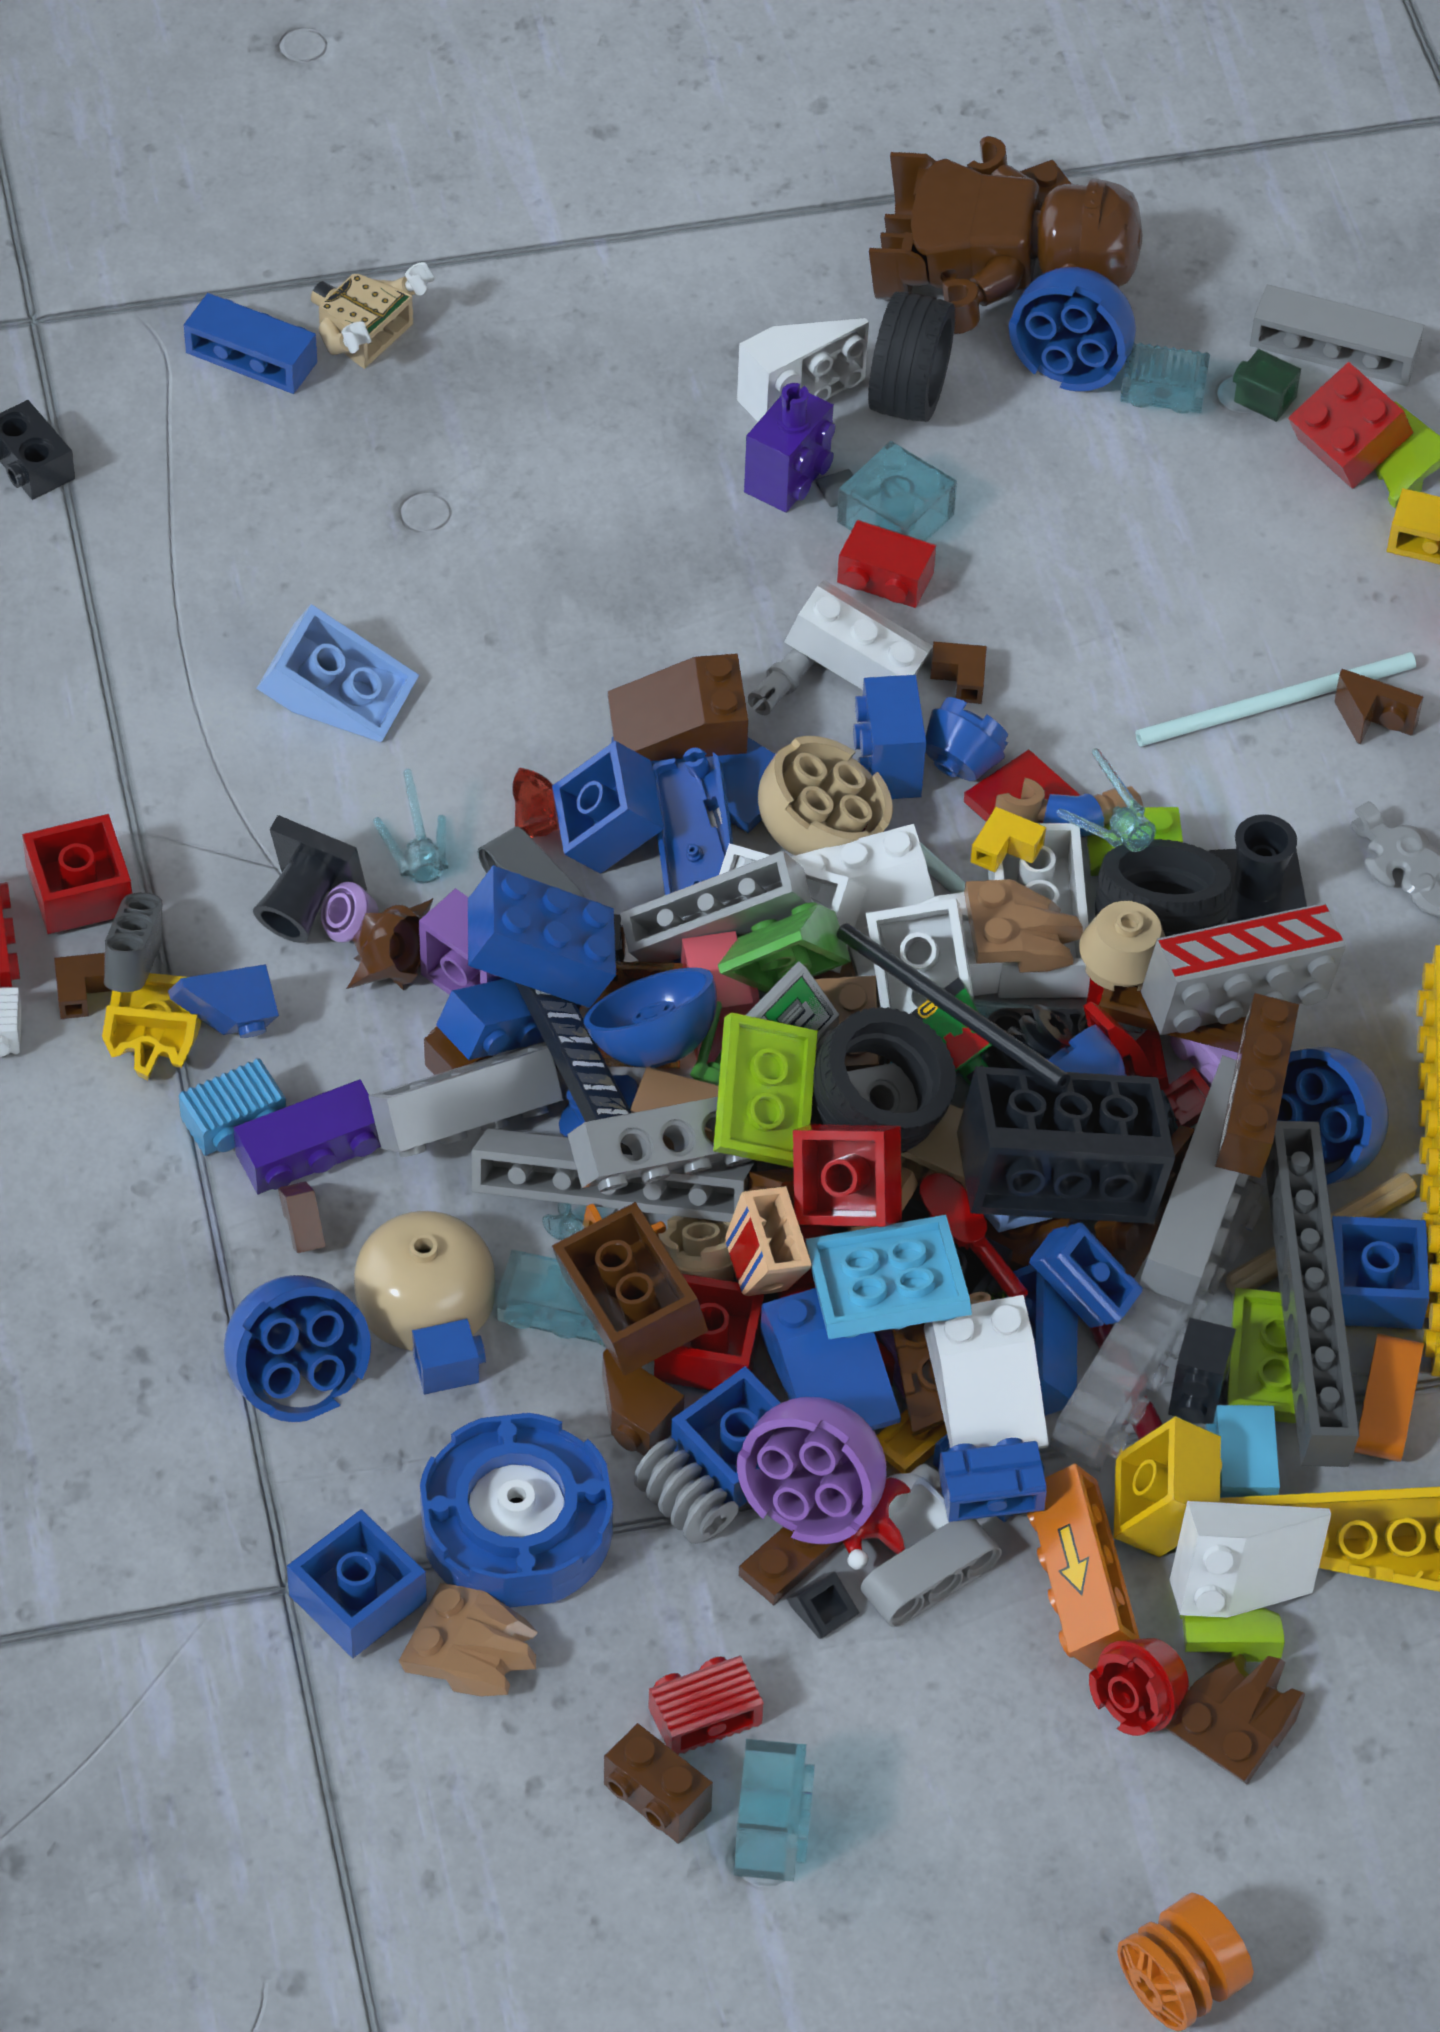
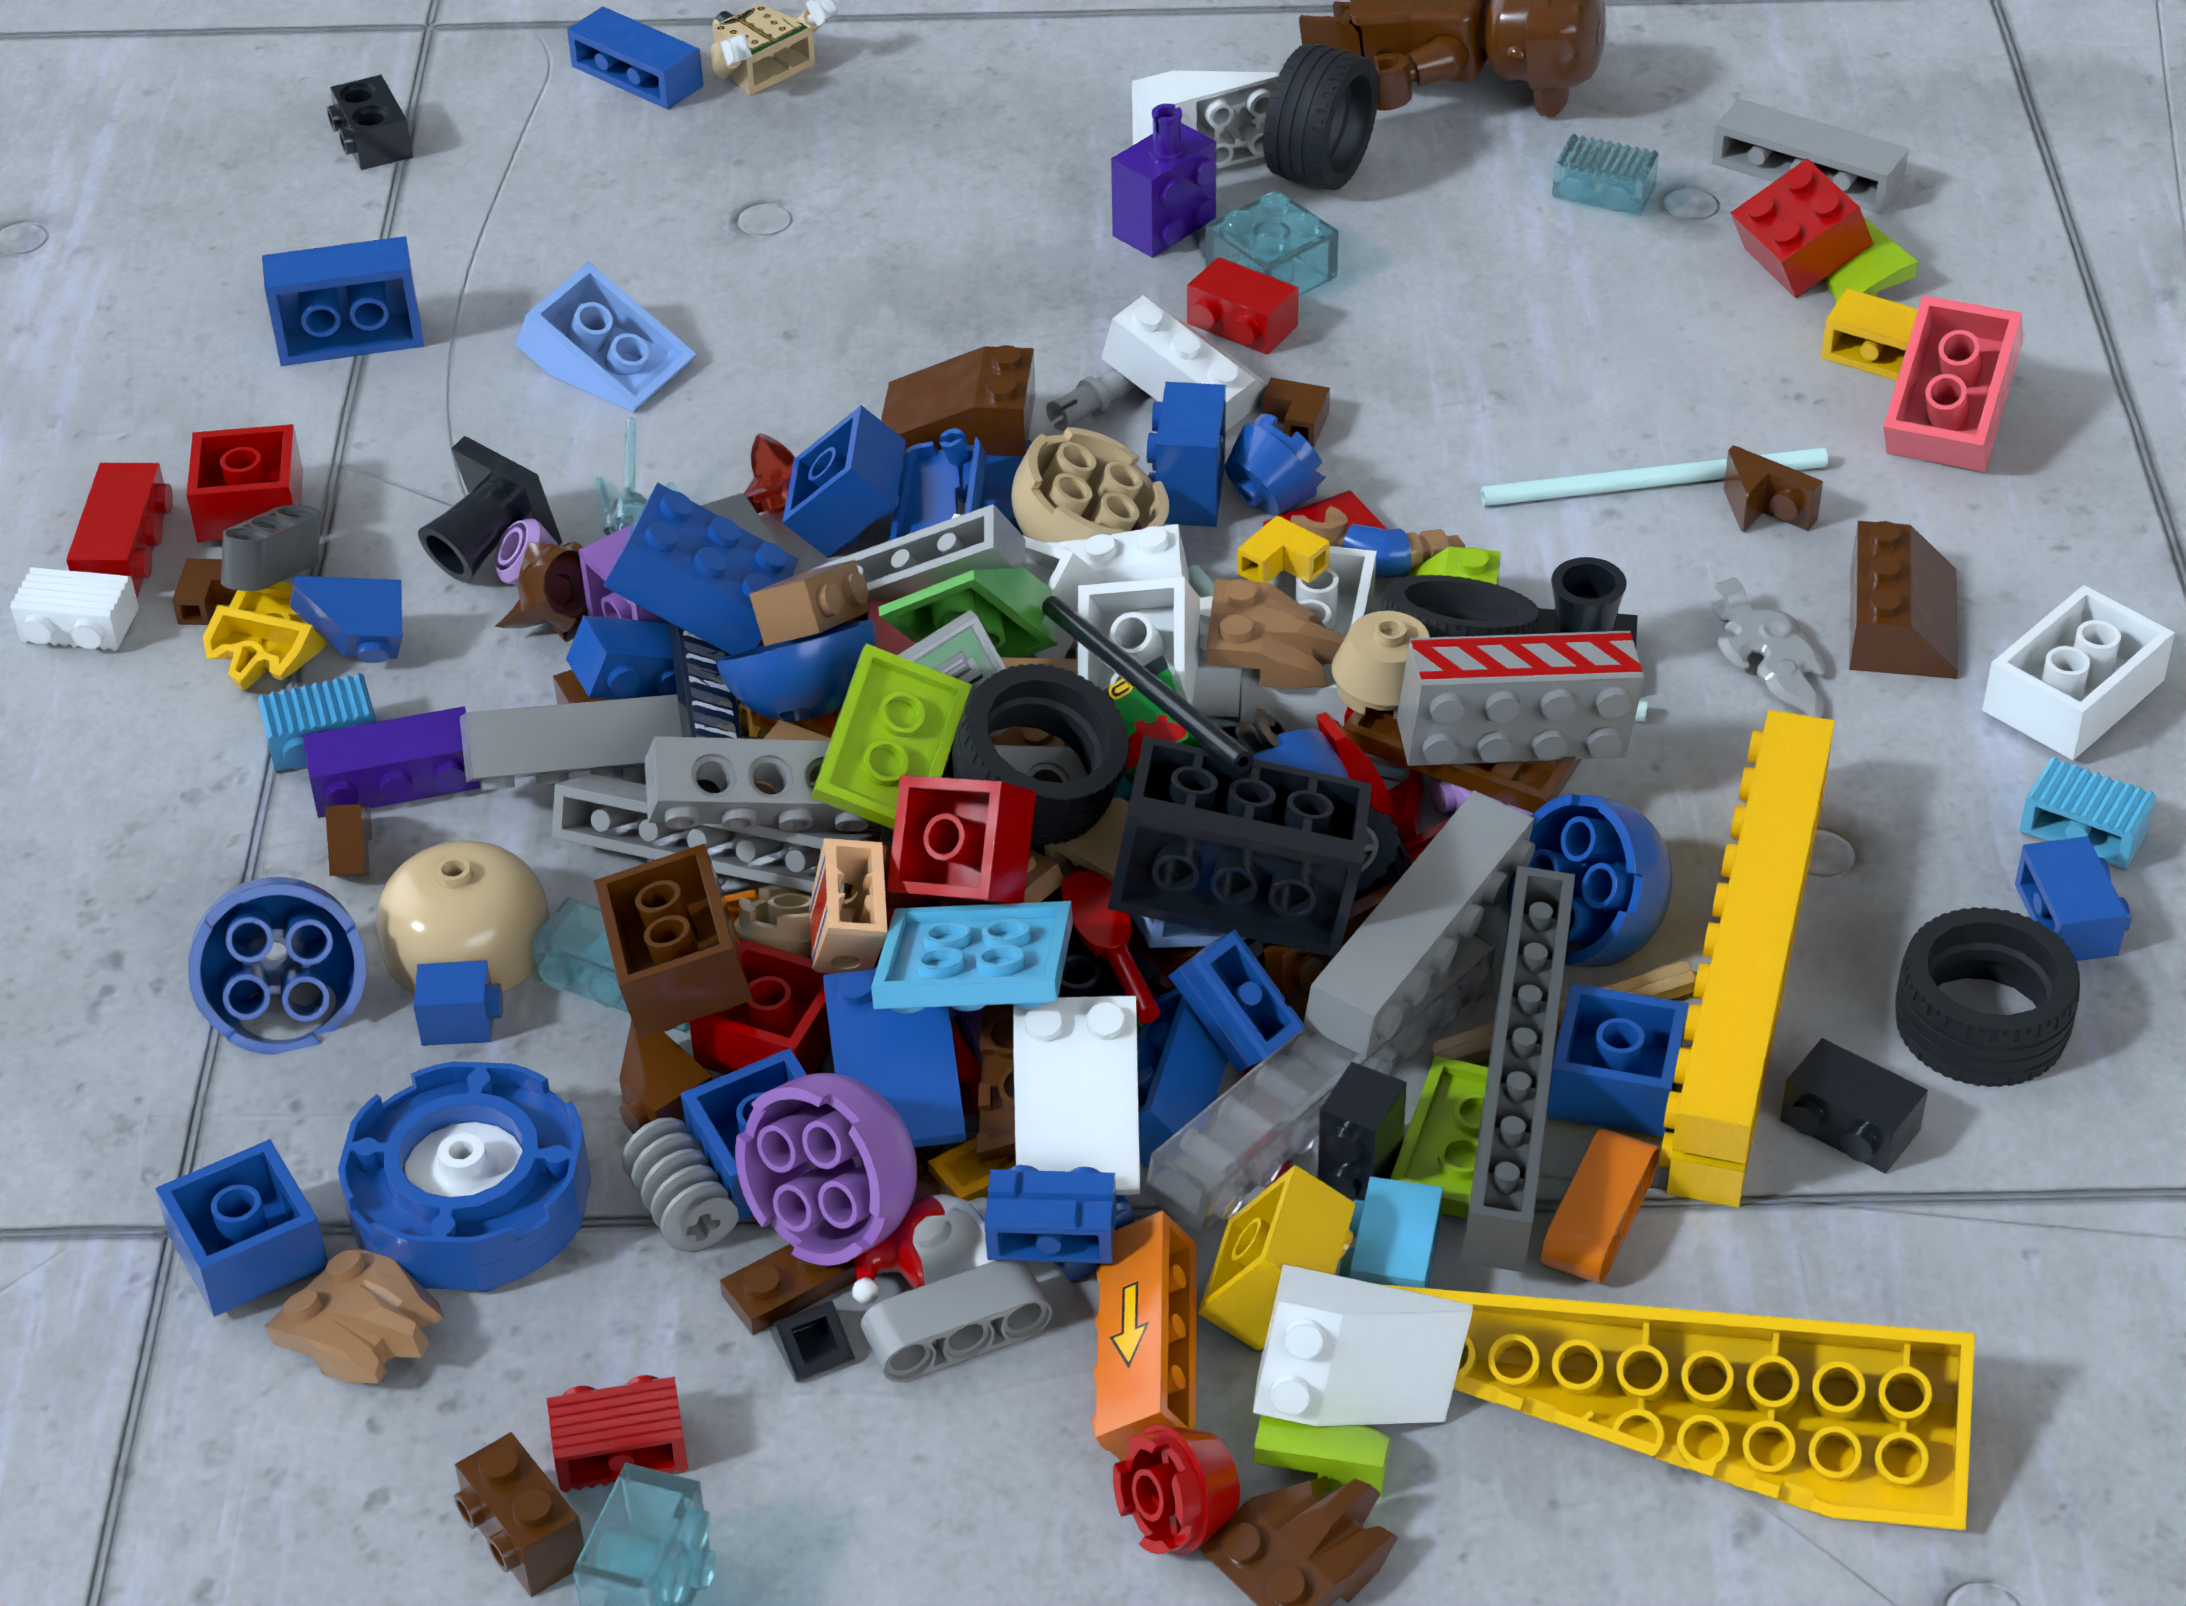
camera: 15 degrees right, 10 degrees down
(93, 666) = (342, 301): none -> blue brick
(644, 955) = (810, 602): none -> medium nougat brick
(1073, 328) = (1508, 110): blue cylinder -> none
(1127, 823) = (1427, 551): clear light blue plant -> none
(1257, 1085) = (1500, 818): reddish brown brick -> none
(1266, 384) = (1716, 188): clear green brick -> none

